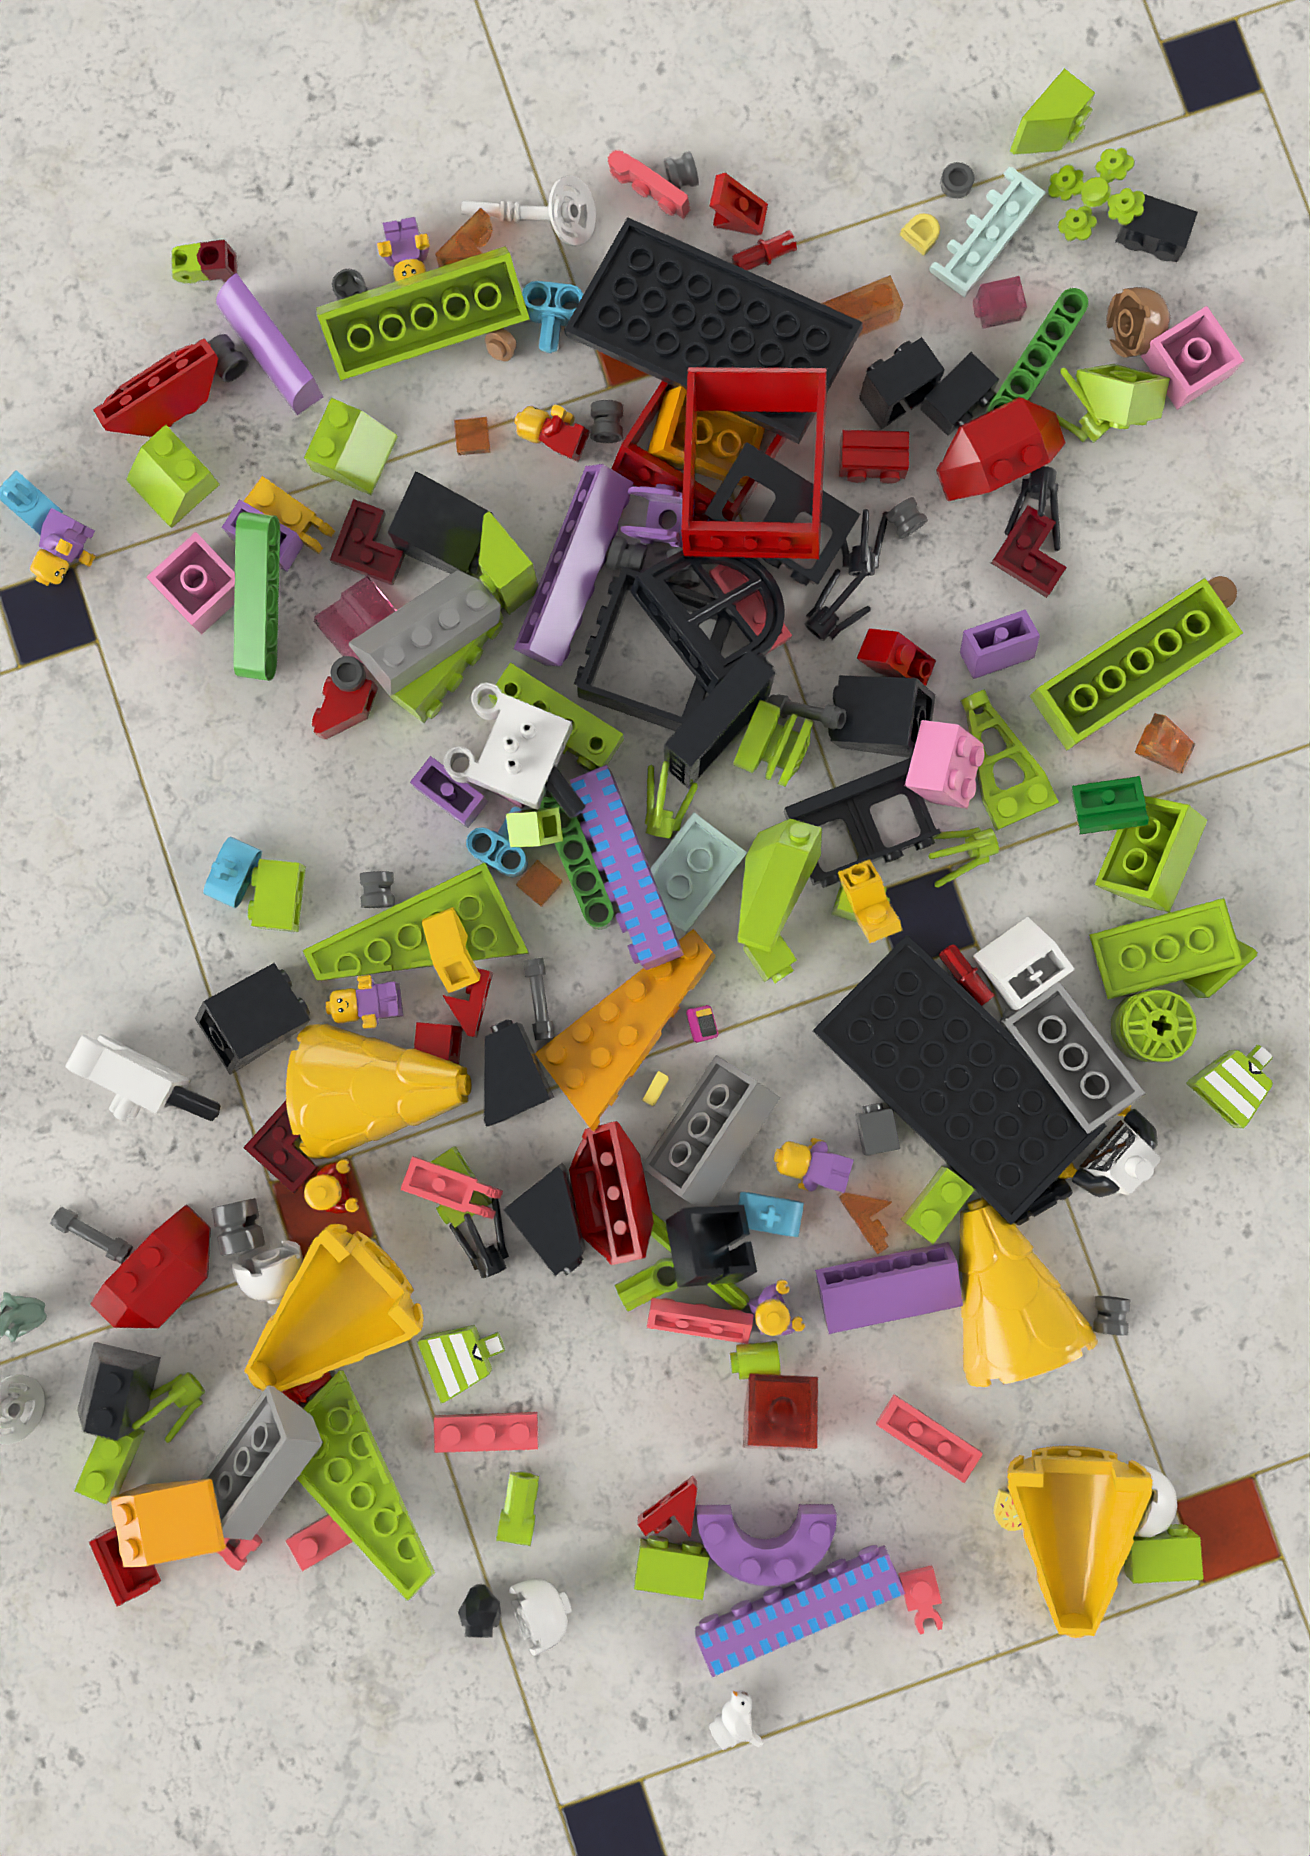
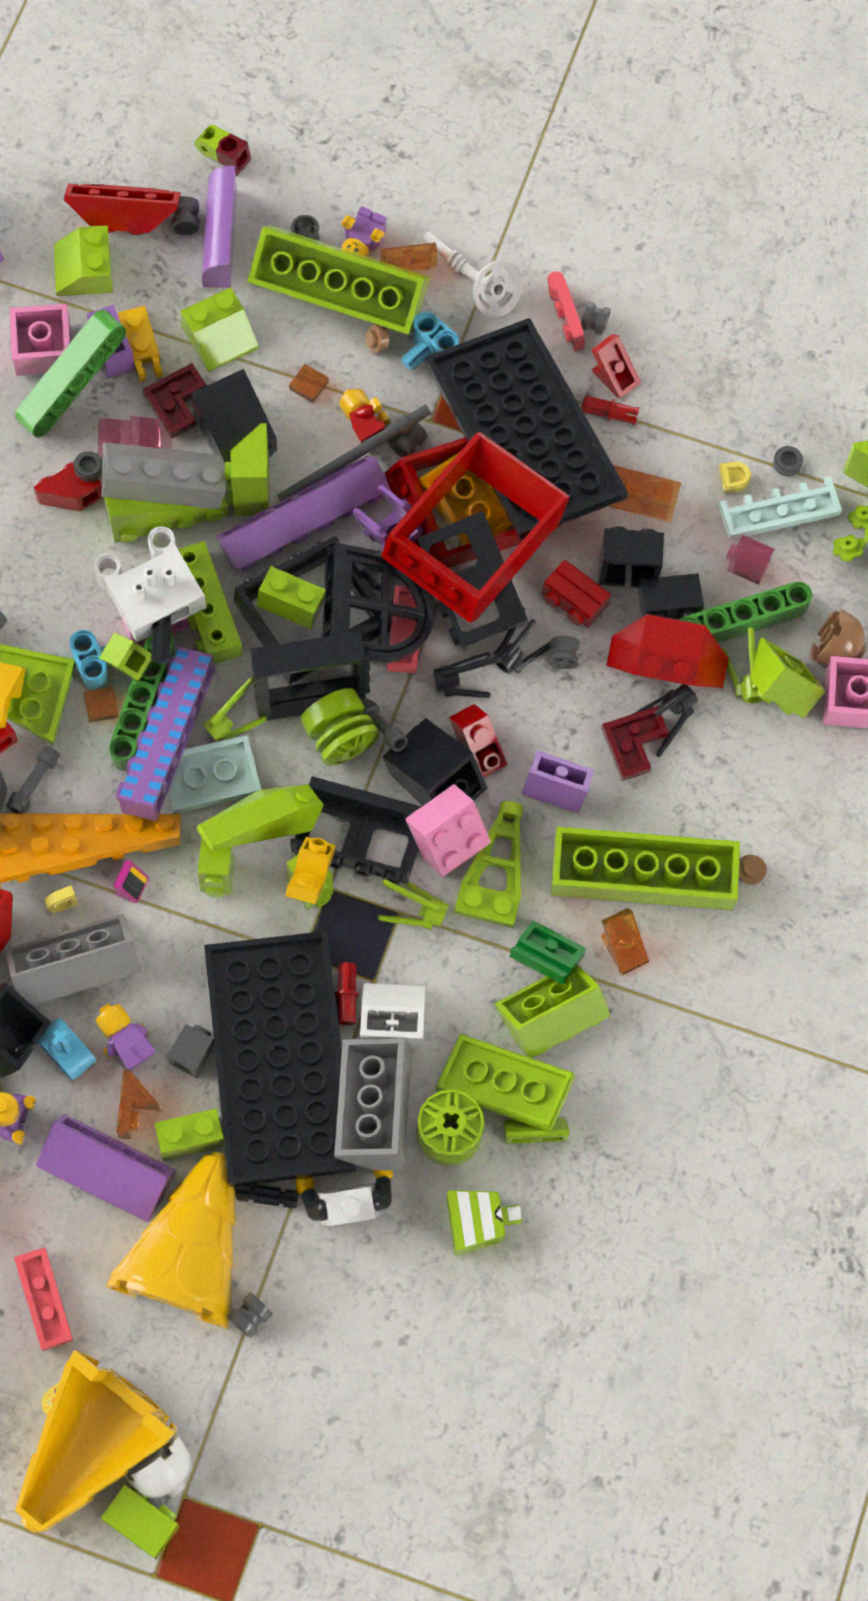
camera: 30 degrees right, 15 degrees down
(455, 798) = (89, 596): medium lavender brick -> none
(598, 412) = (402, 425): none -> dark grey bar
(626, 555) = (345, 531): dark grey wheel -> none
(638, 658) = (290, 597): none -> lime brick

